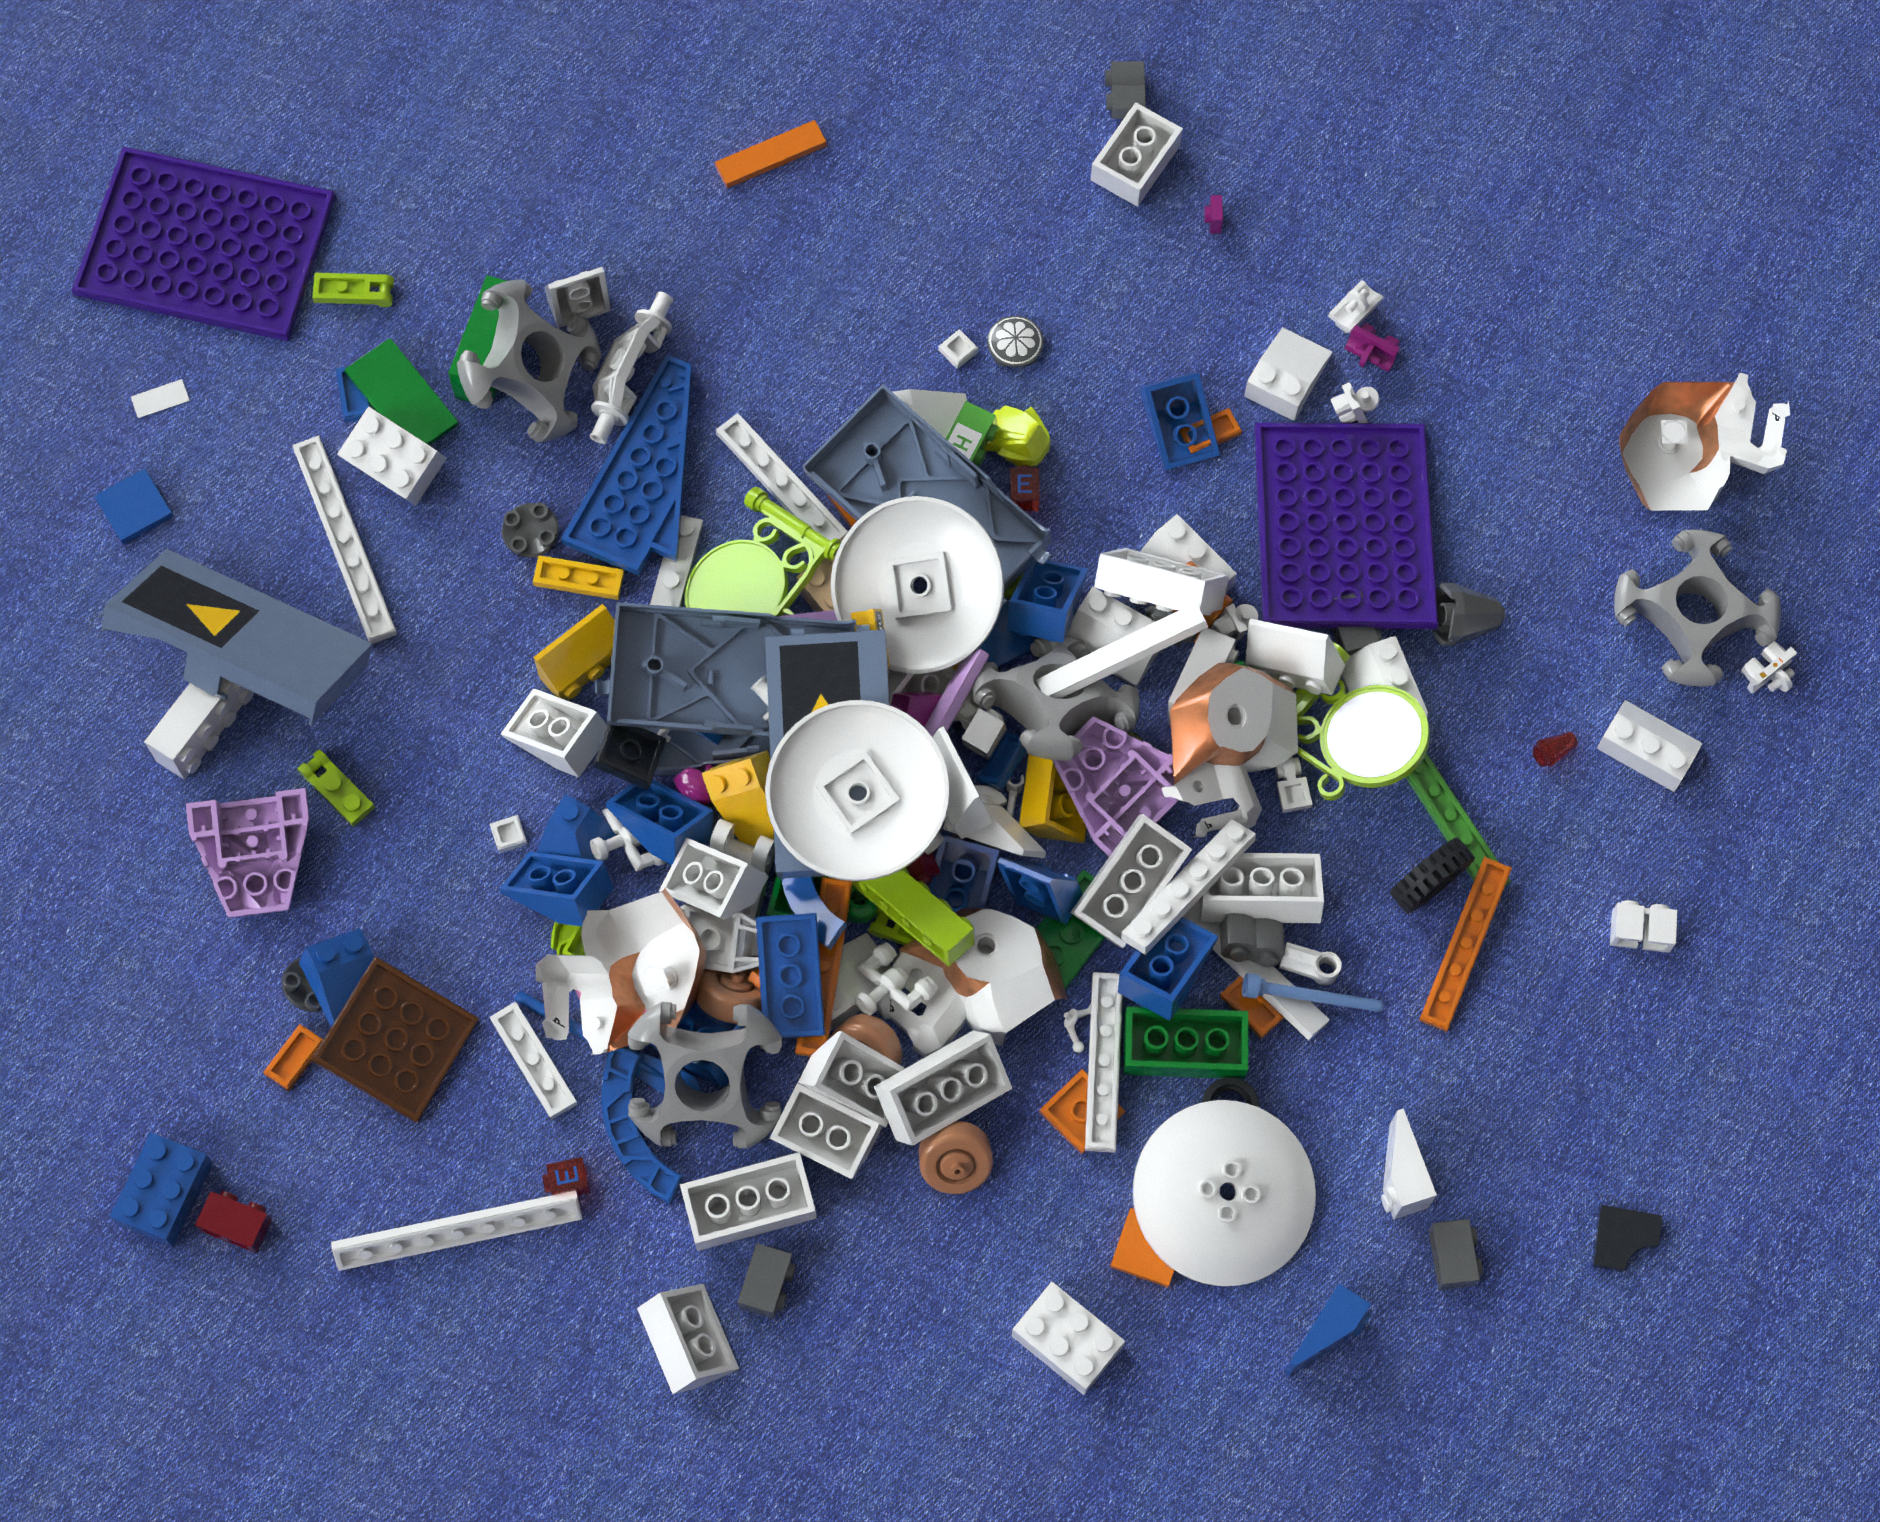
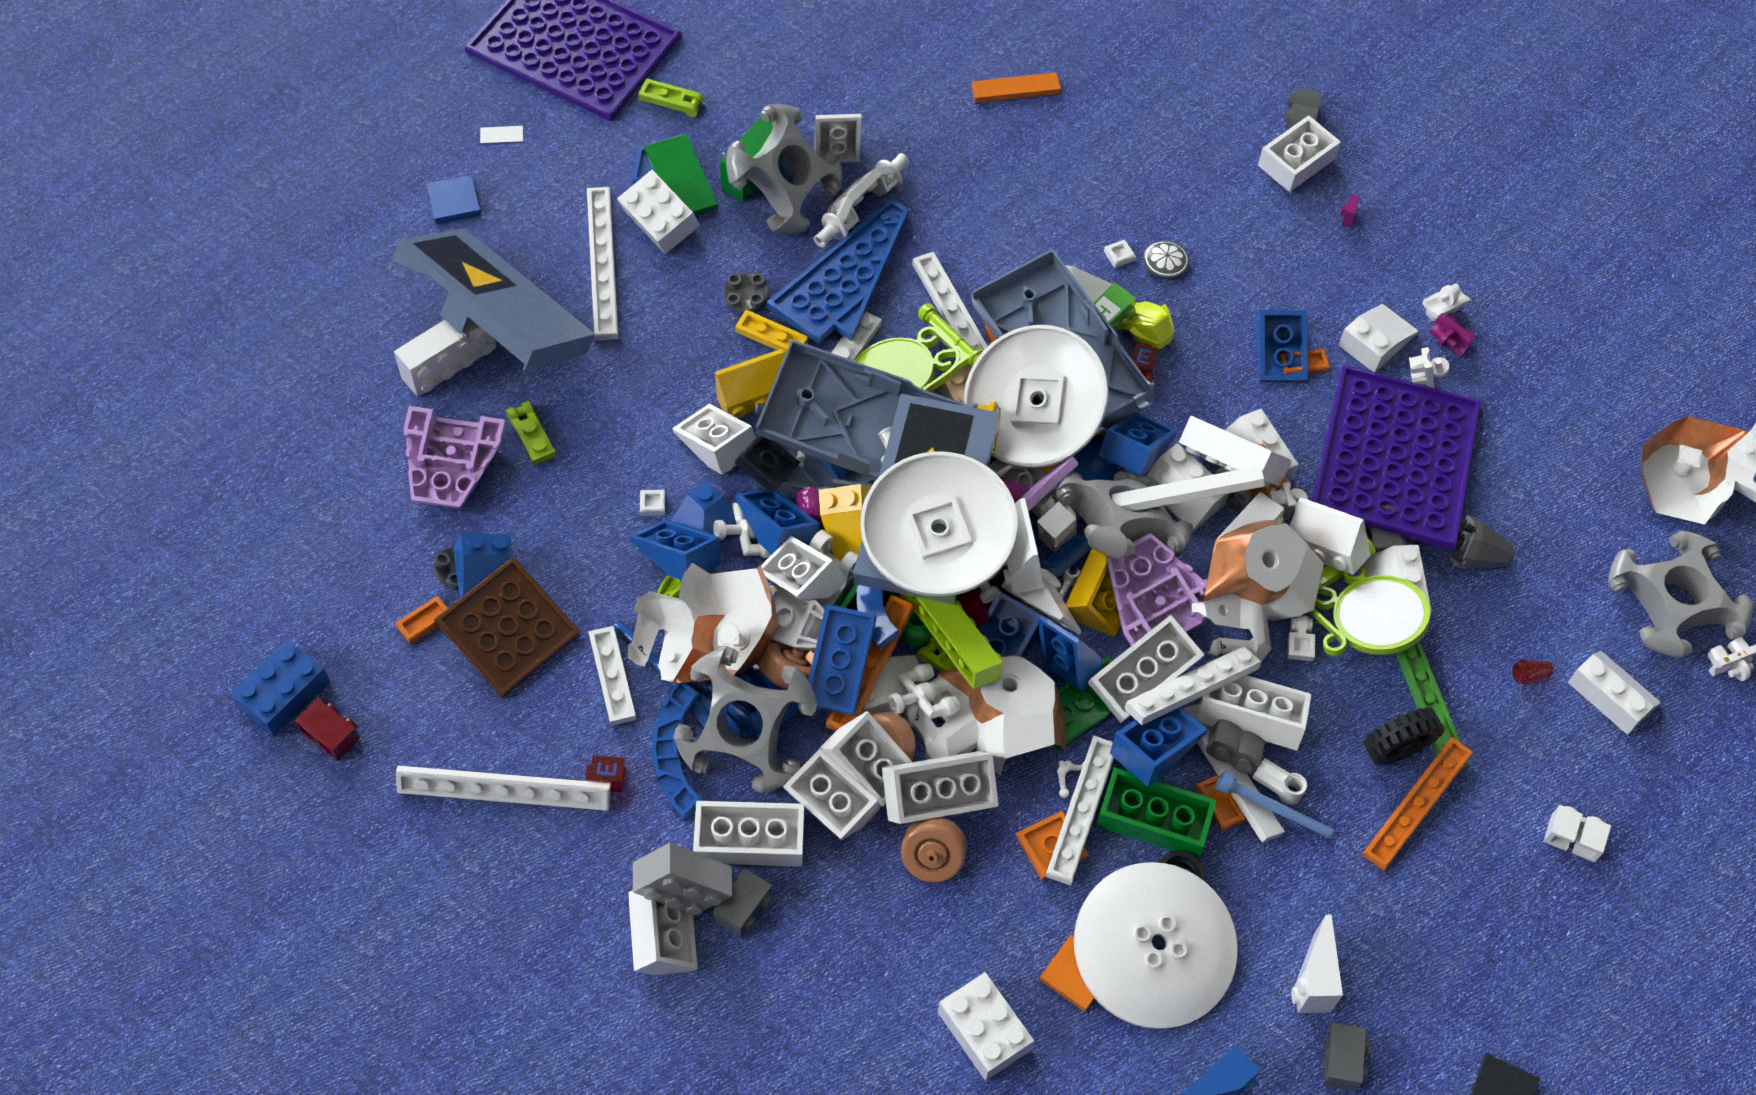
camera: 15 degrees right, 10 degrees down
(695, 1281) = (682, 879): none -> light grey brick

